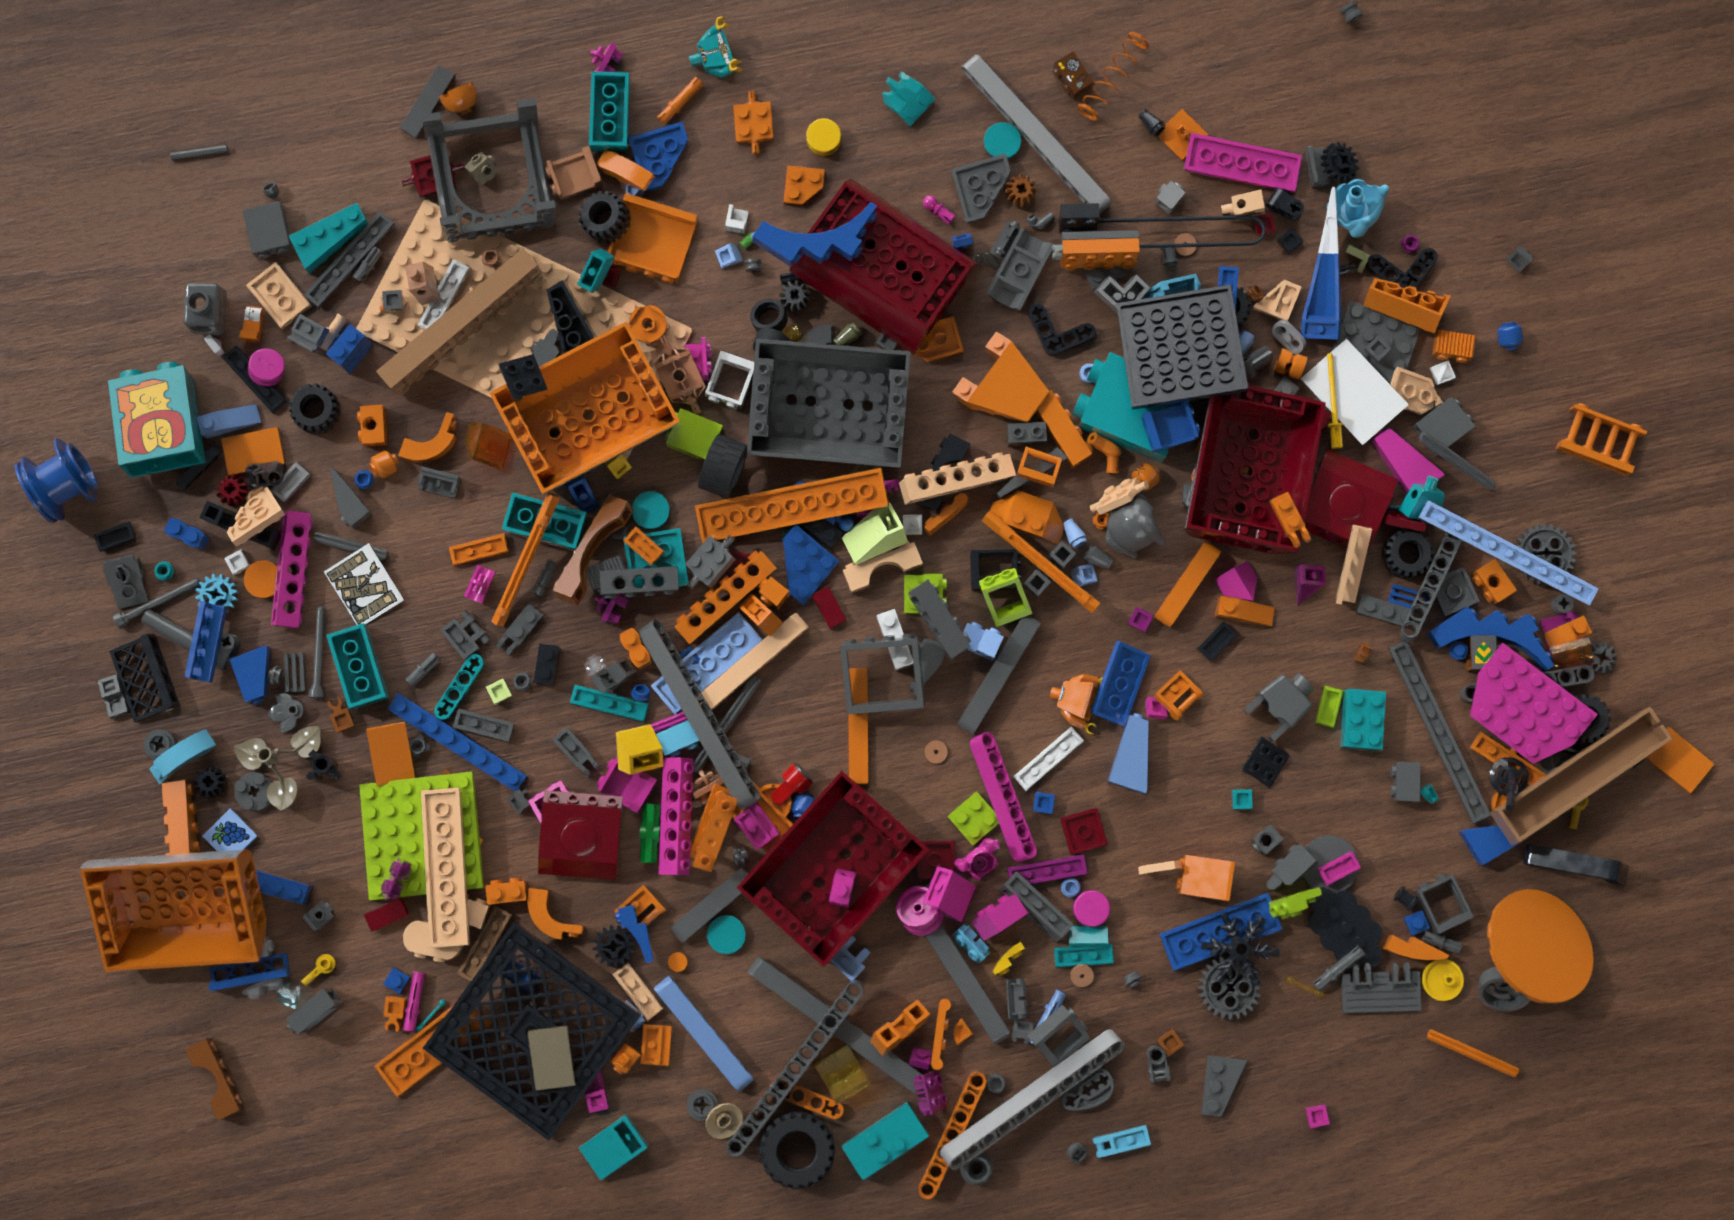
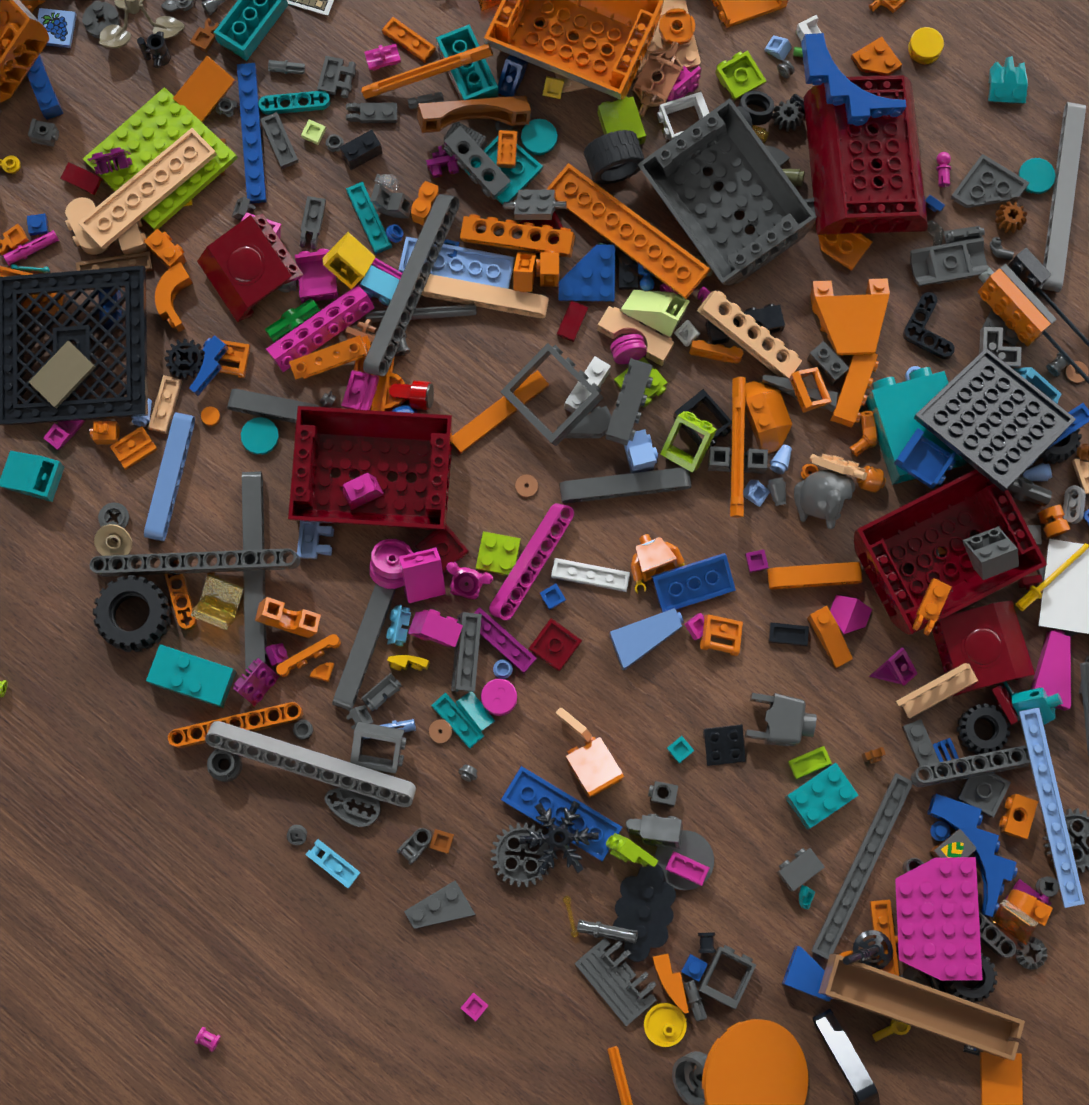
camera: 50 degrees right, 5 degrees down
(730, 307) = (740, 75): none -> lime plate
(890, 582) = (628, 347): none -> dark pink head
(1285, 439) = (991, 553): none -> dark grey slope

